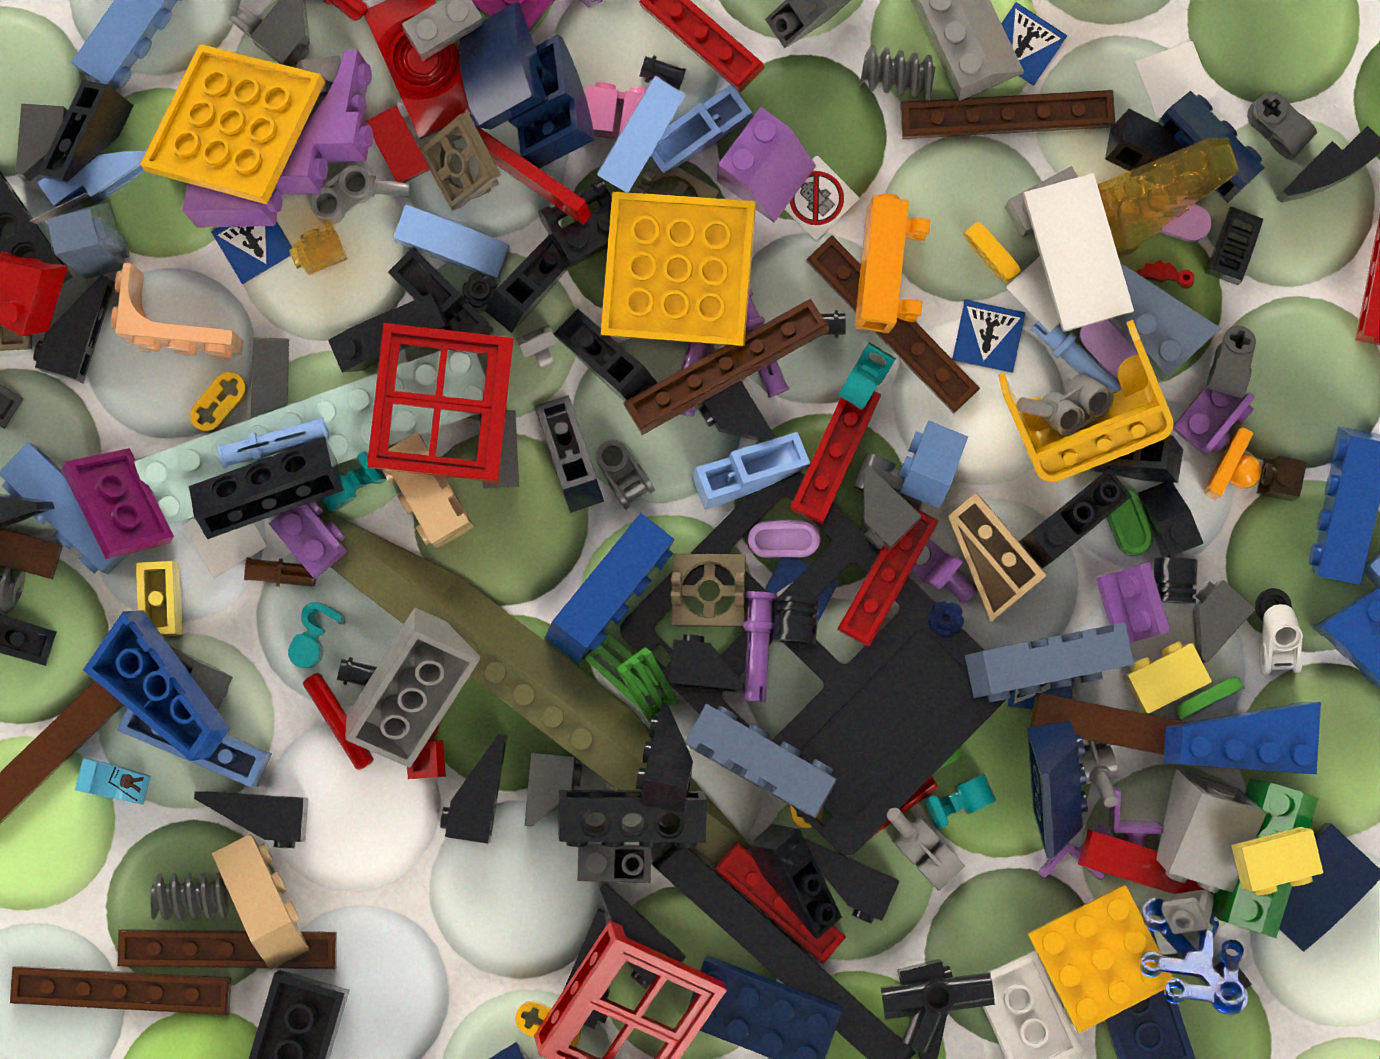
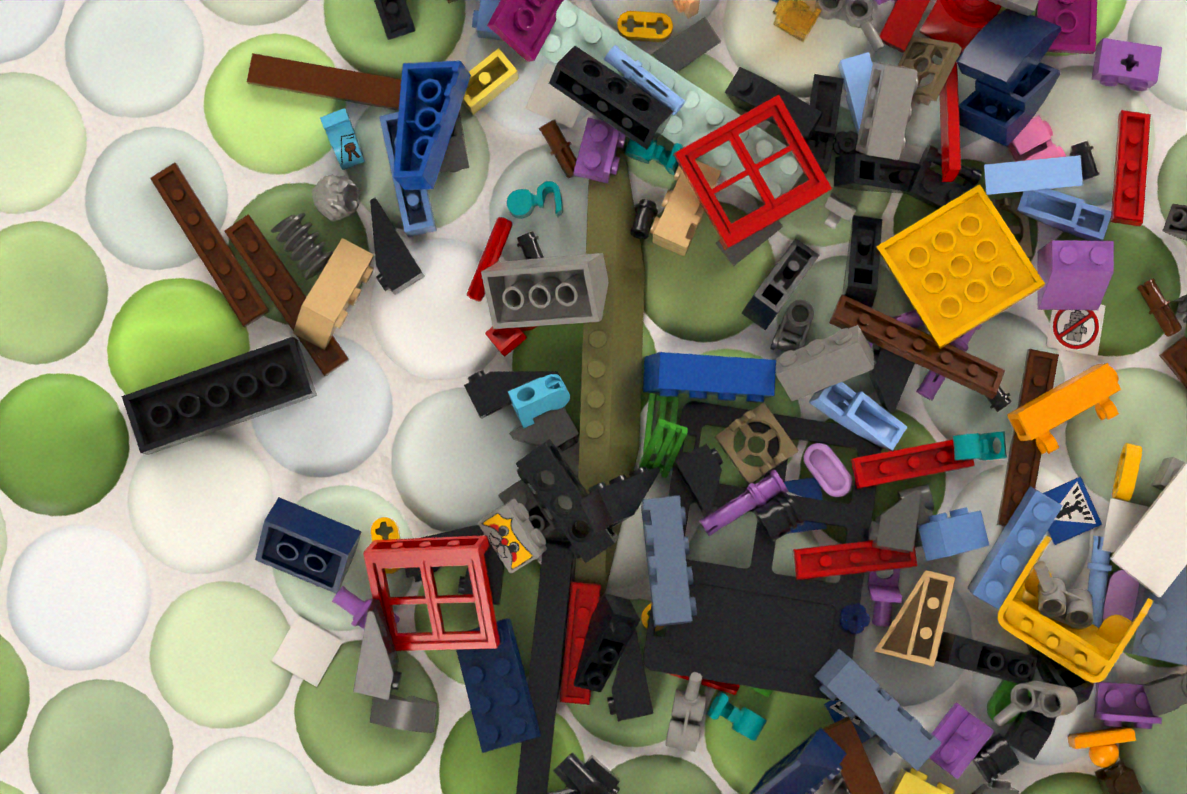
camera: 60 degrees right, 0 degrees up
(165, 830) = (335, 197): none -> light grey piece
(403, 534) = (645, 212): none -> black pin
(475, 228) = (887, 110): none -> light grey brick
(511, 771) = (538, 397): none -> medium azure leg
(628, 894) = (513, 535): none -> light grey brick
(678, 467) = (824, 363): none -> light grey brick
(856, 105) = (1160, 308): none -> reddish brown axle
(987, 414) = (1014, 547): none -> medium blue brick
(1153, 495) = (1042, 701): none -> light grey beam

